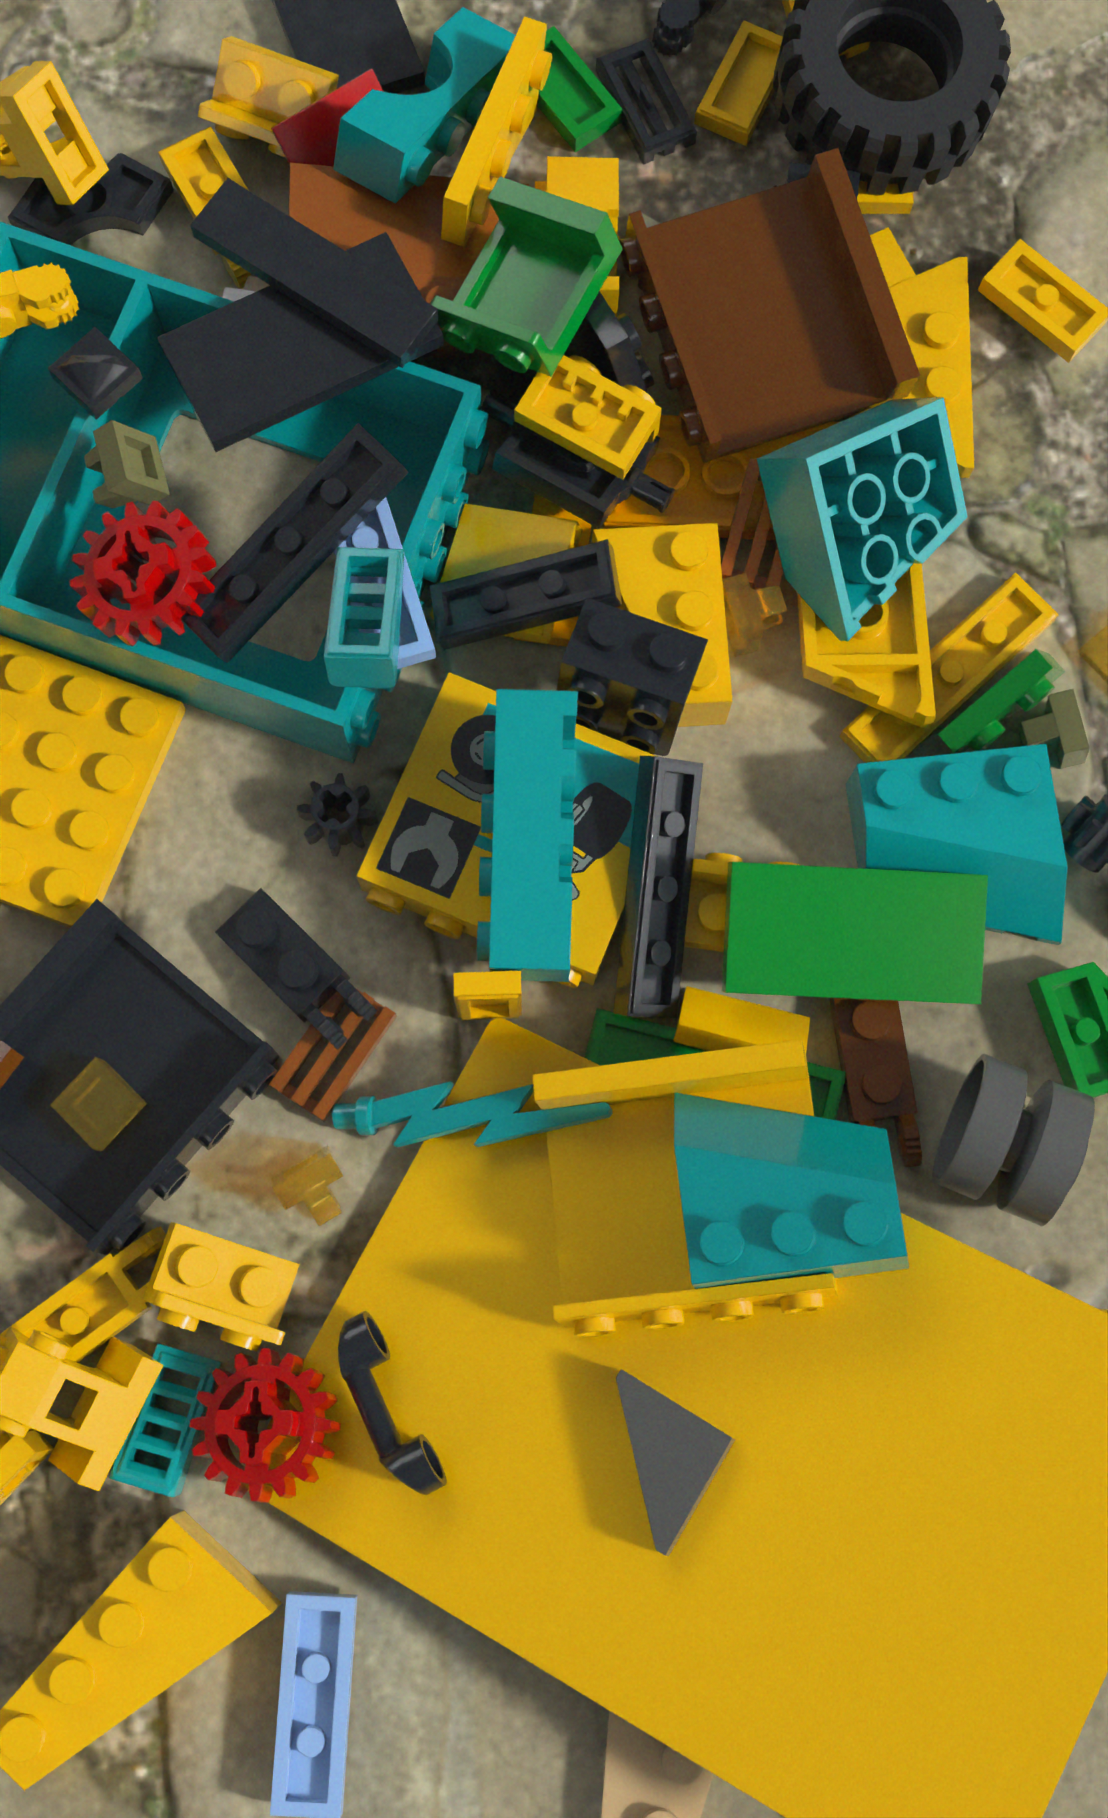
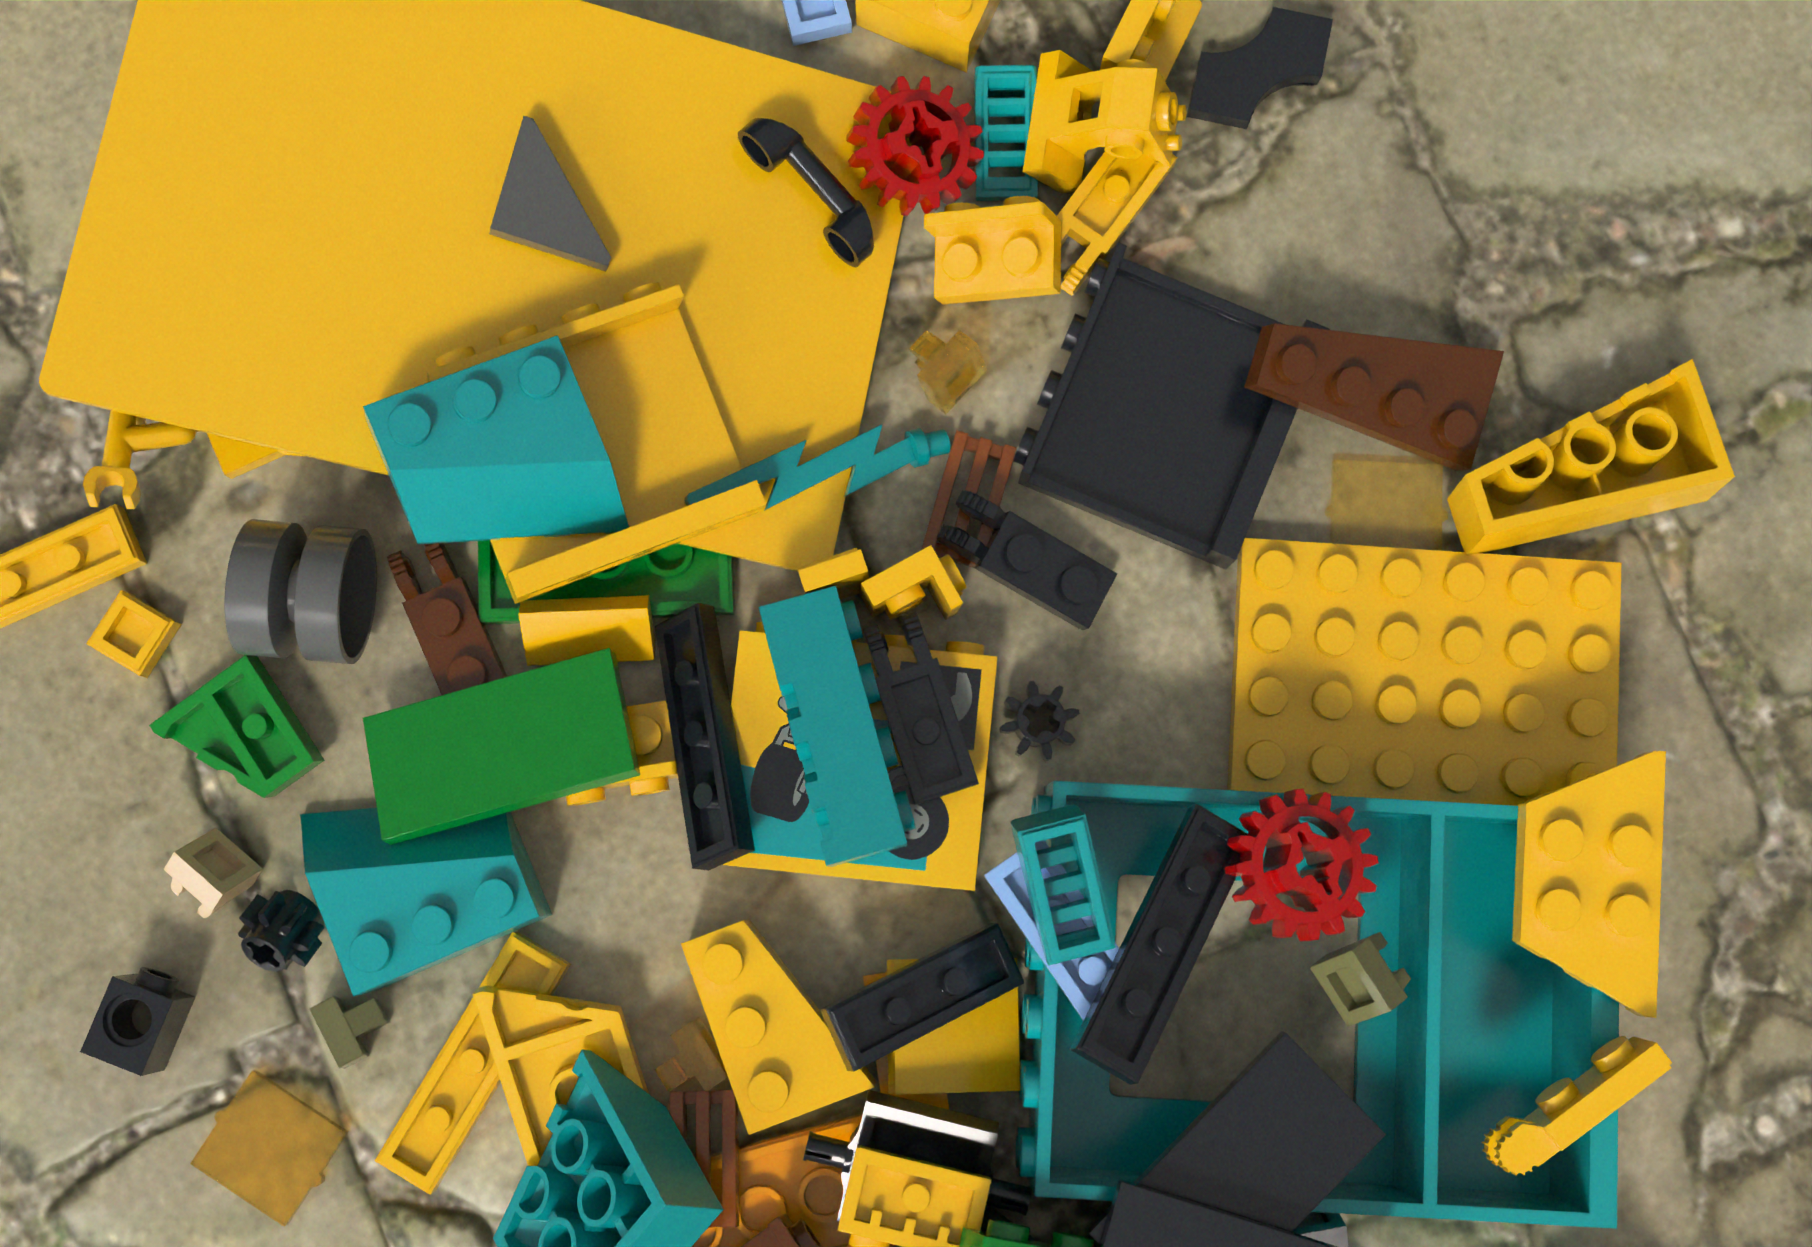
camera: 165 degrees right, 5 degrees up
(95, 373) = (1435, 1077): black tile -> none
(98, 1104) = (1165, 380): clear yellow tile -> none
(414, 973) = (903, 584): none -> yellow bracket
(446, 833) = (921, 717): none -> black hinge
(629, 675) = (791, 939): black bracket -> none
(1019, 688) = (393, 1052): green wing -> none

